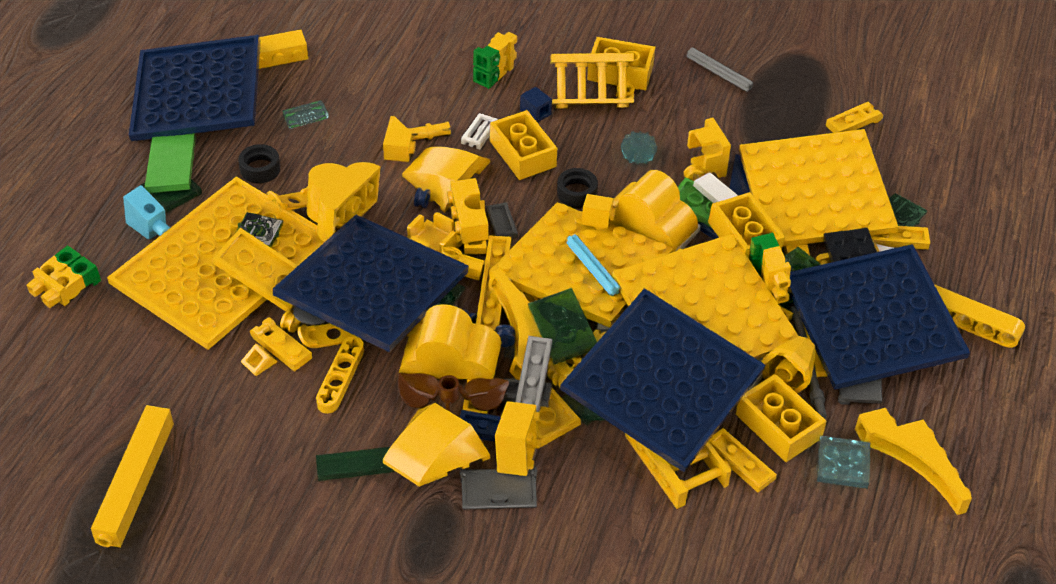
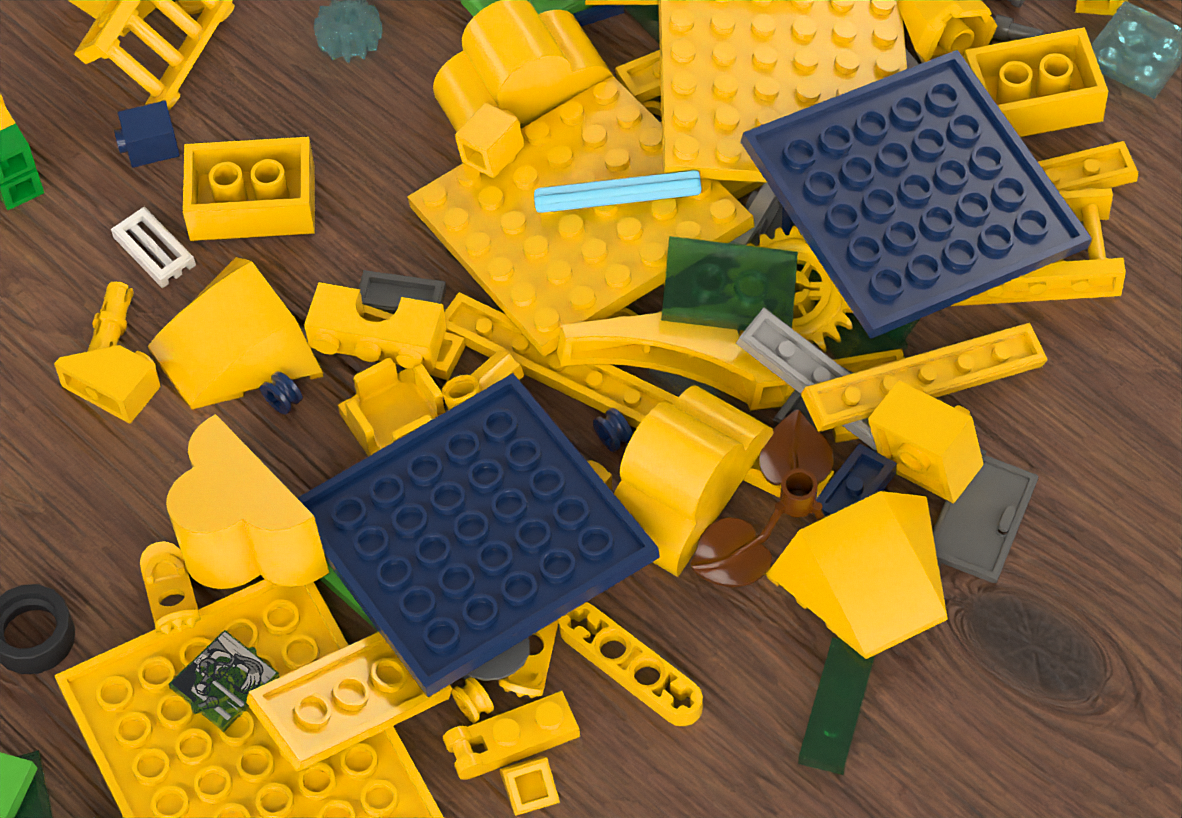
camera: 60 degrees left, 10 degrees up
(507, 335) = (689, 376): dark blue bush -> none
(564, 431) = (938, 371): none -> yellow tile
(576, 176) = (381, 130): black tyre -> none

